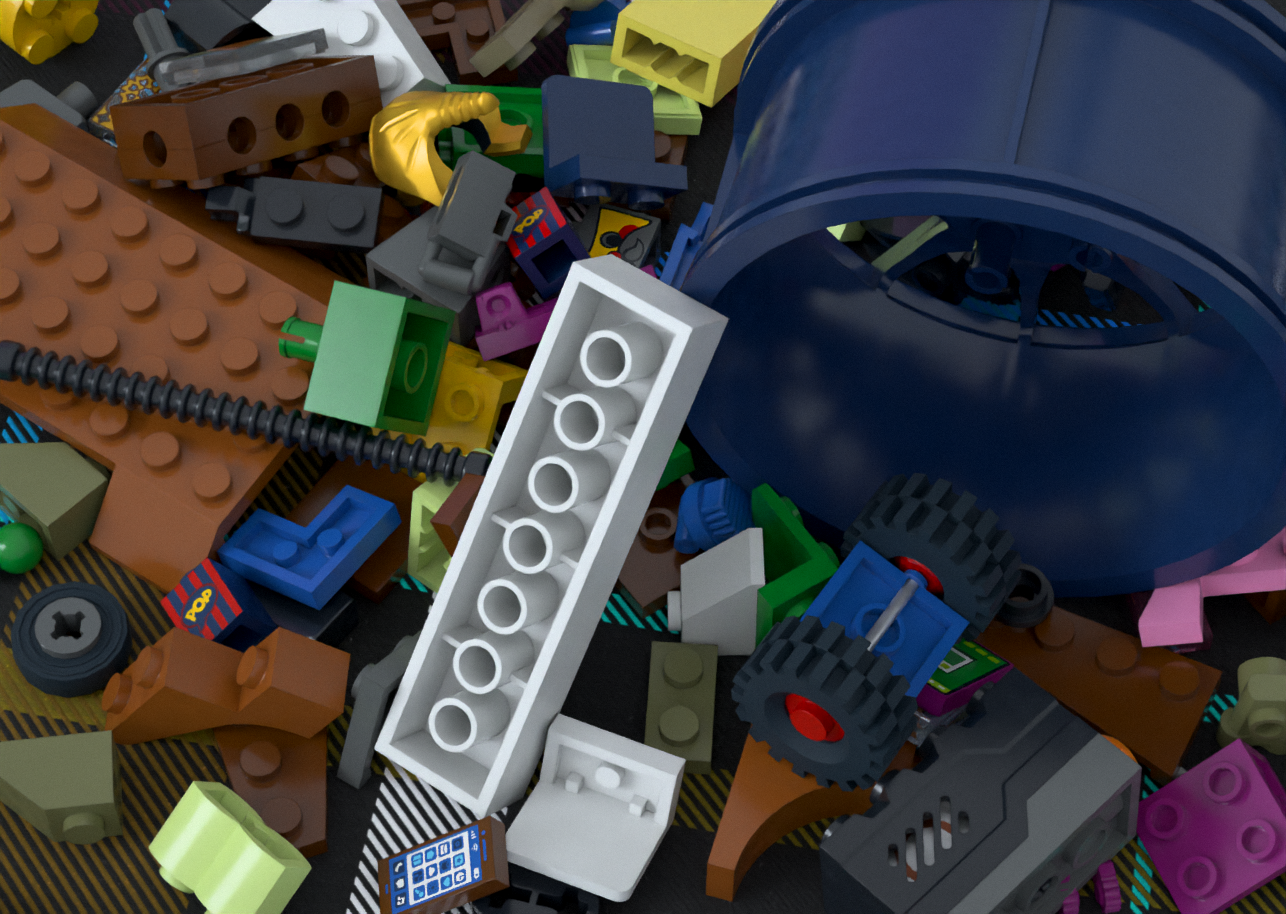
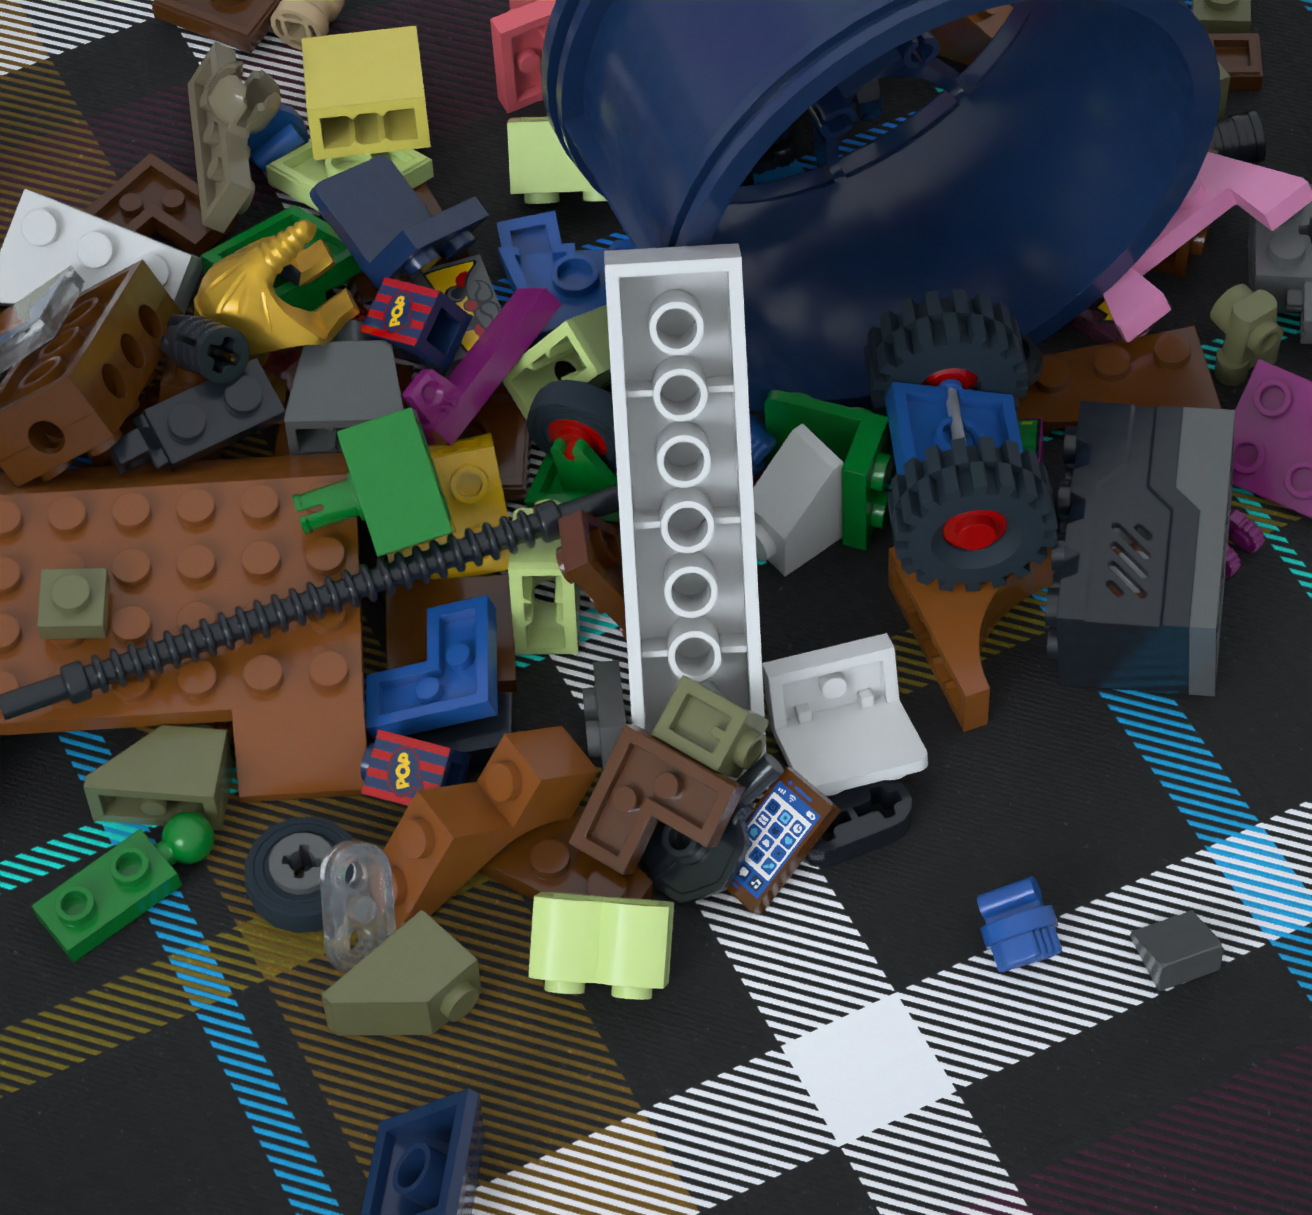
camera: 35 degrees left, 0 degrees up
(64, 296) = (73, 603): none -> olive plate
(71, 689) = (360, 905): none -> clear plate
(344, 155) = (198, 347): none -> black hinge
(359, 756) = (648, 784): none -> reddish brown plate
(390, 822) = (692, 871): none -> black piece
(446, 740) = (712, 728): none -> olive bracket
(467, 222) = (358, 339): dark grey piece -> none
(682, 702) = (818, 602): olive plate -> none

